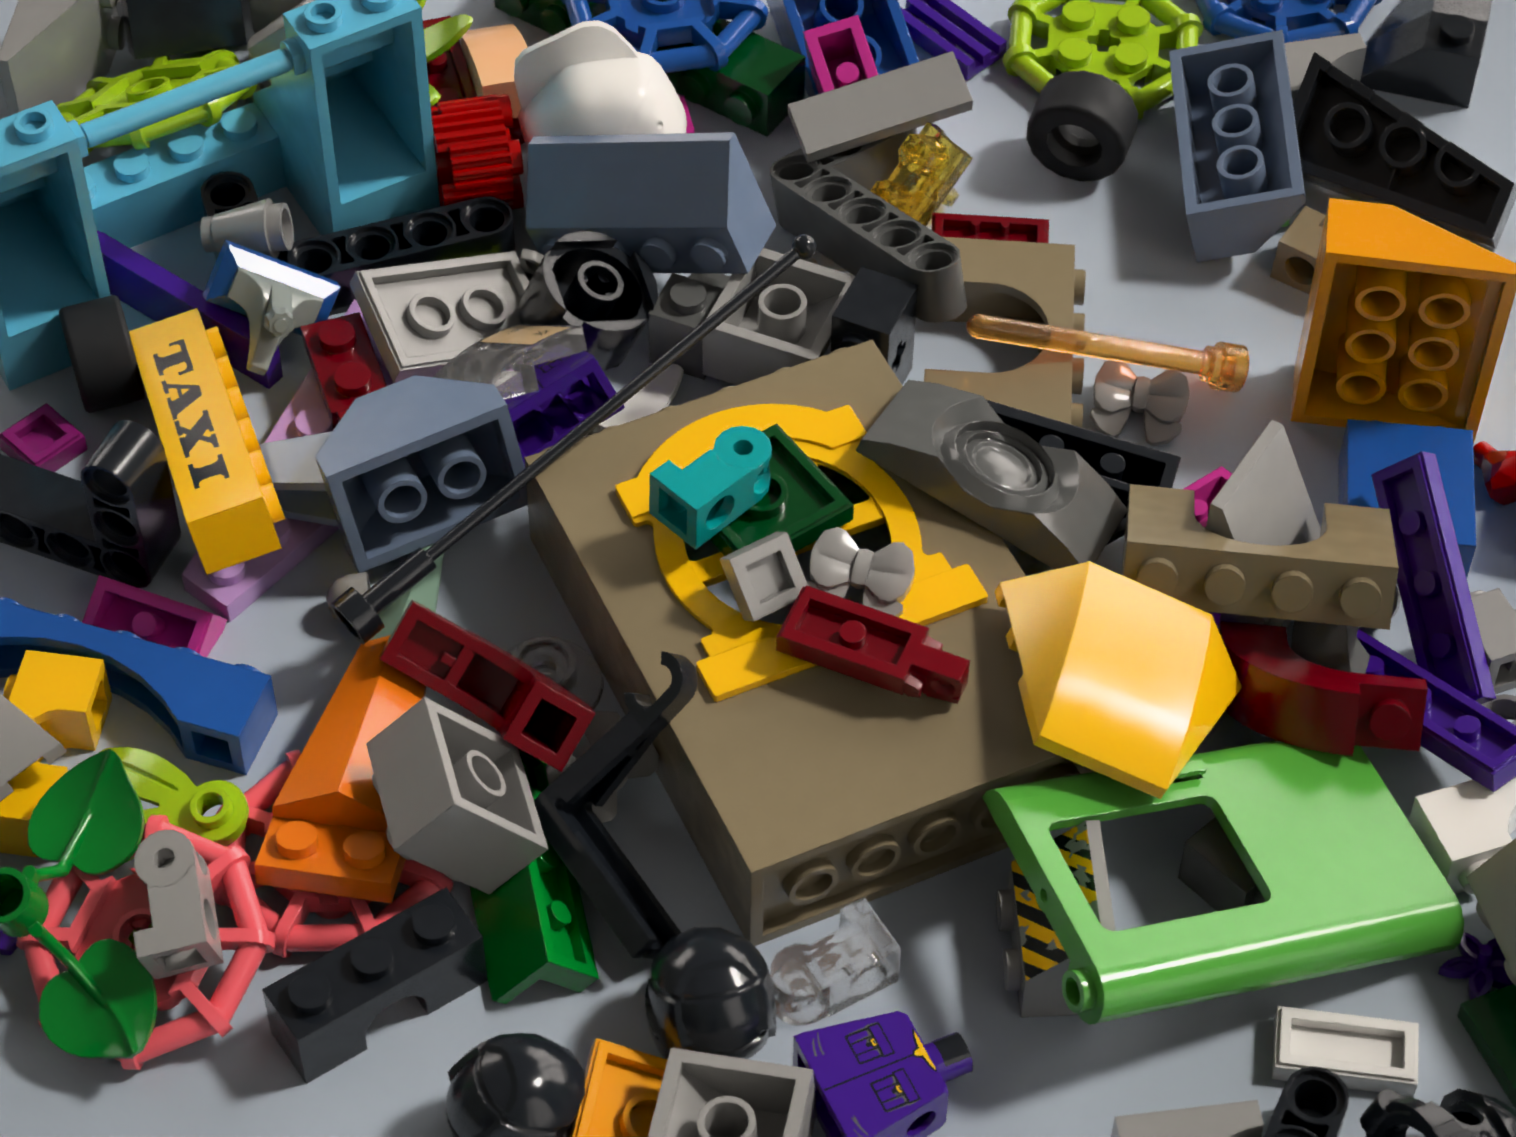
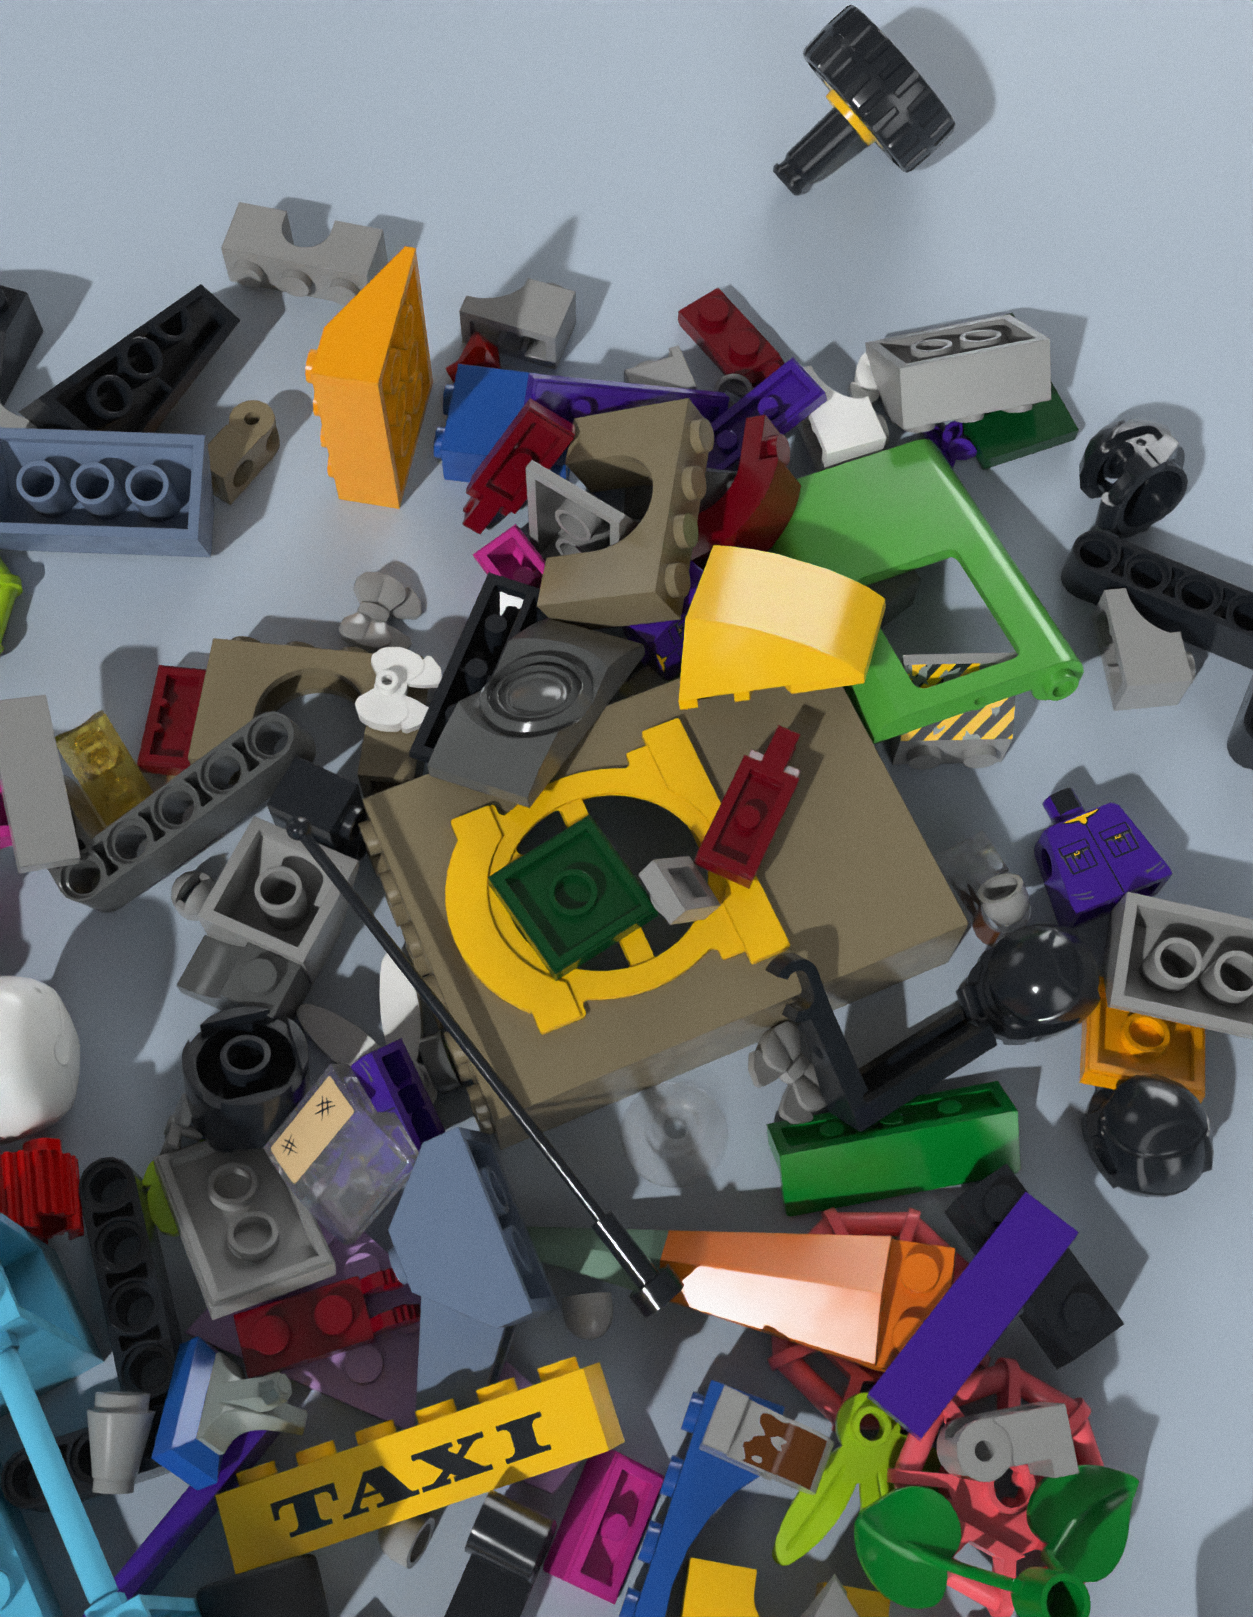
camera: 90 degrees left, 15 degrees up
(201, 695) = (766, 1442): none -> leg
(313, 877) = (972, 1316): none -> dark purple tile
(455, 797) = (880, 1185): light grey brick -> none
(490, 683) = (729, 1147): dark red arch -> none
(666, 196) = (140, 1015): sand blue slope -> none
(713, 487) = (579, 910): teal leg -> none
(801, 948) = (1004, 898): none -> light grey hinge
(883, 575) = (669, 795): light grey piece -> none
(1045, 386) = (387, 704): none -> white piece
(1082, 126) = (51, 621): black tyre -> none
(1221, 365) = (350, 547): clear orange piece -> none
(1343, 471) = (501, 477): none -> dark red hinge
(1359, 1049) = (1026, 533): white tile -> none

